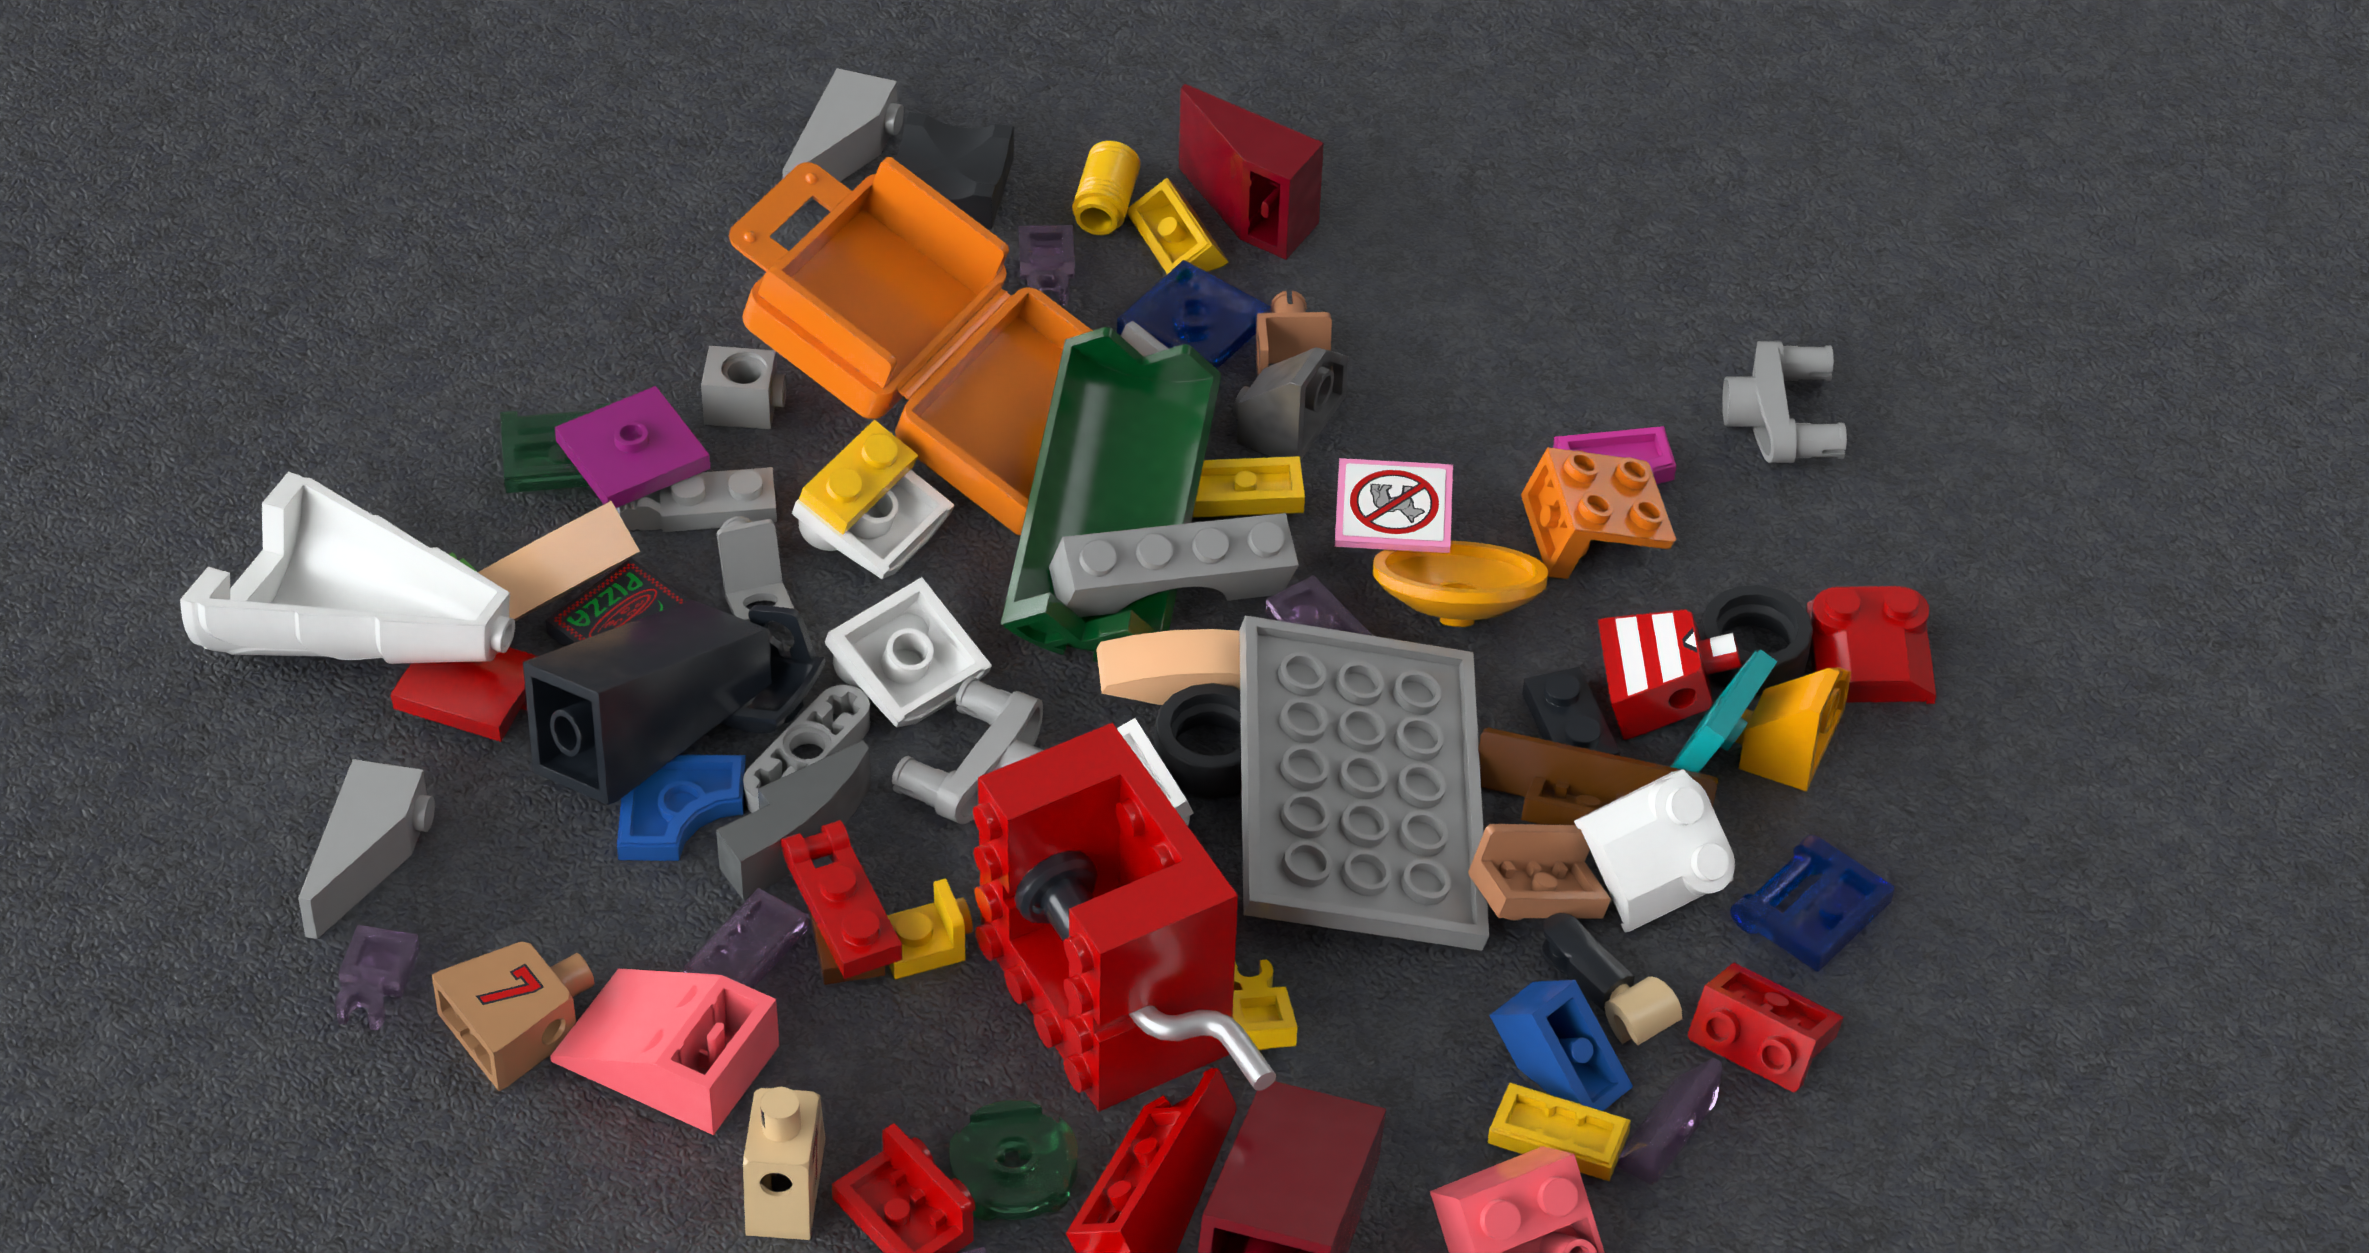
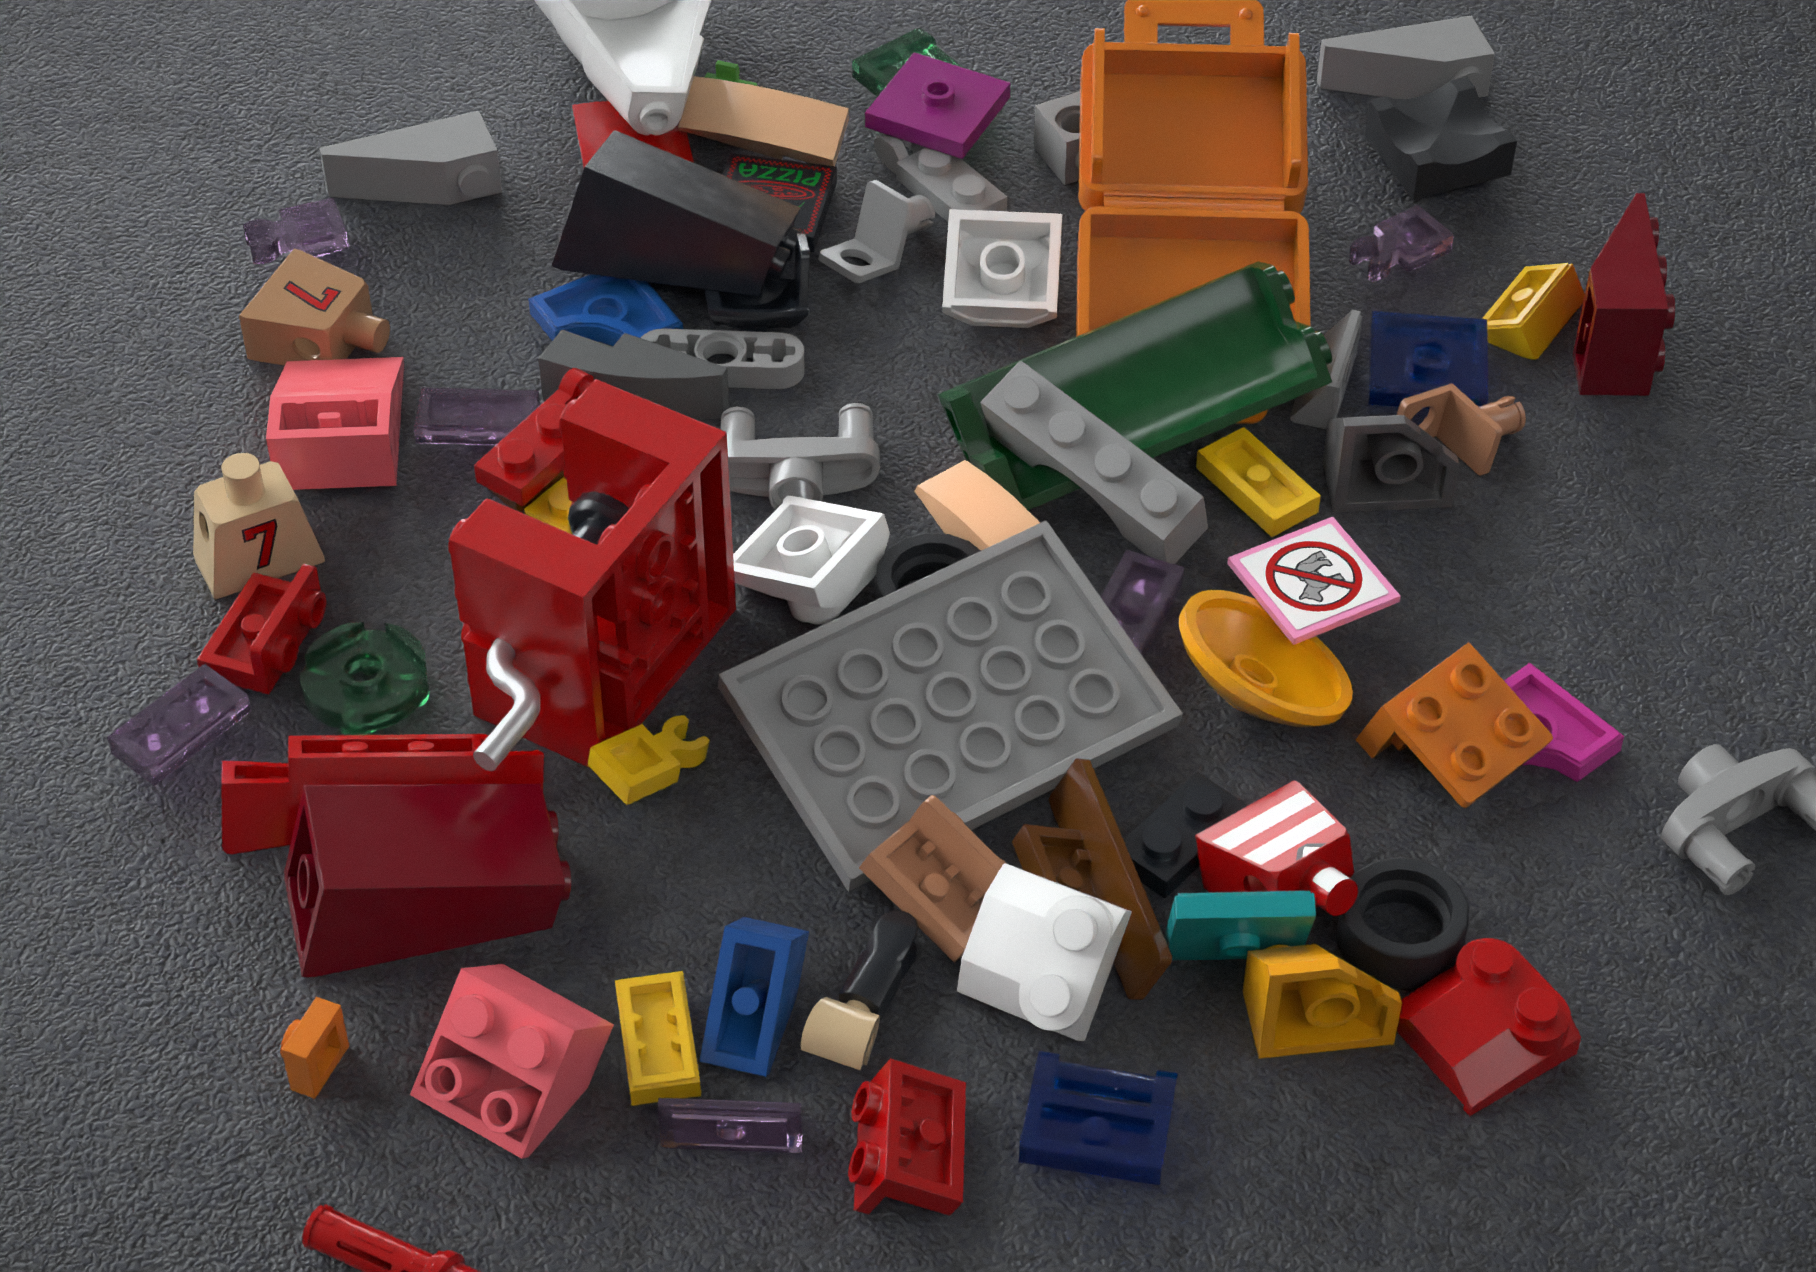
camera: 60 degrees right, 0 degrees up
(858, 477) = (1008, 230): yellow plate -> none
(906, 654) = (858, 356): white slope -> none
(1106, 187) = (1527, 237): yellow head -> none

